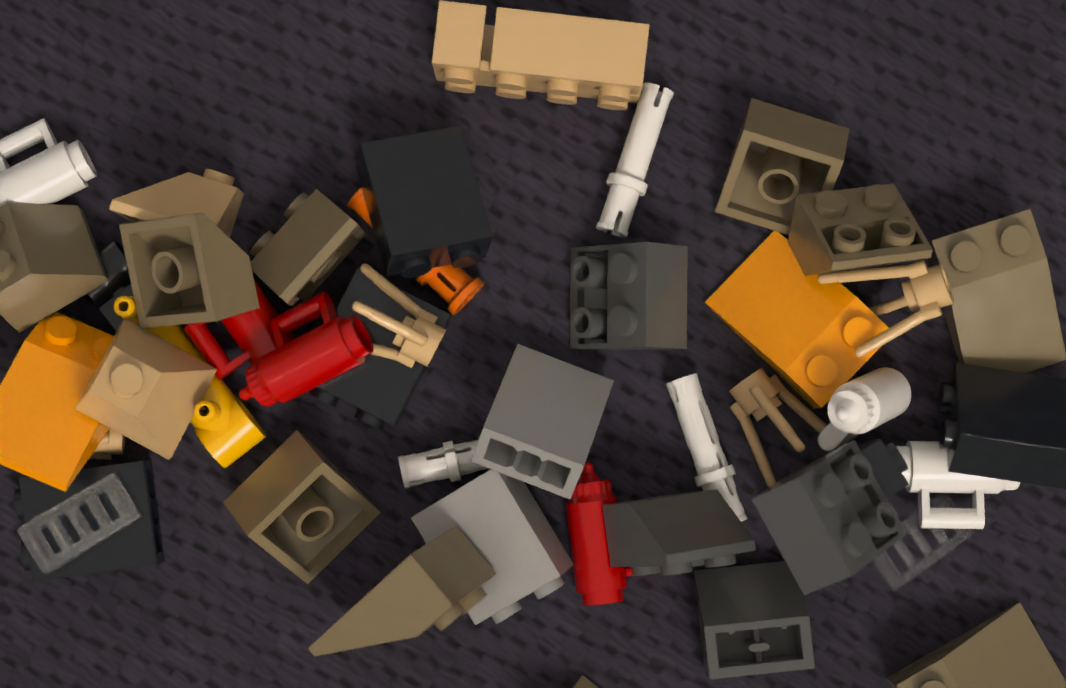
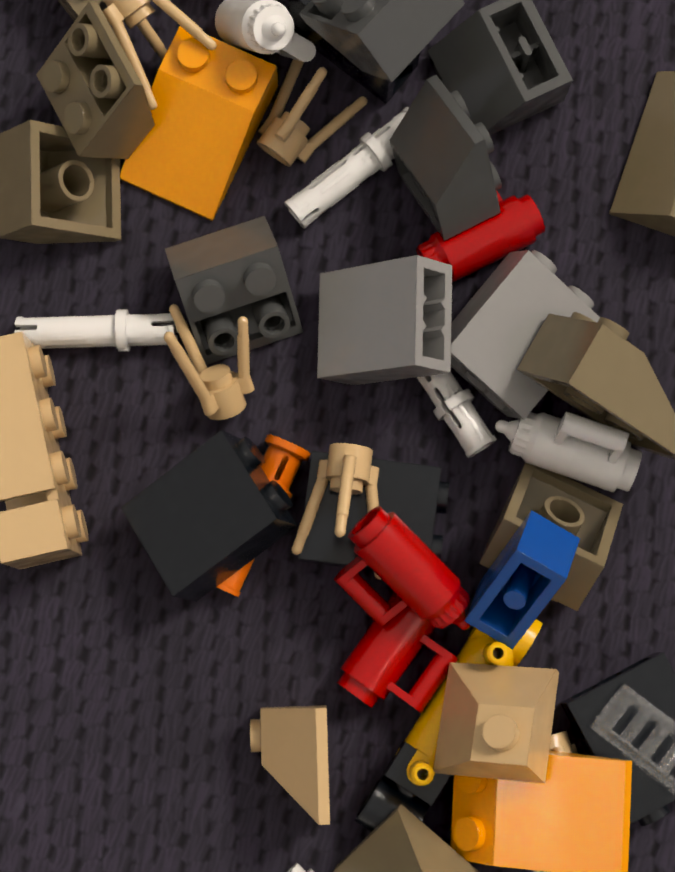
camera: 115 degrees left, 5 degrees down
(186, 271) = (366, 721): dark tan slope -> none
(260, 456) = (522, 579): none -> blue brick
(305, 247) = (296, 619): dark tan slope -> none
(369, 553) = (574, 448): none -> white piece
(539, 252) = (217, 386): none -> tan plant

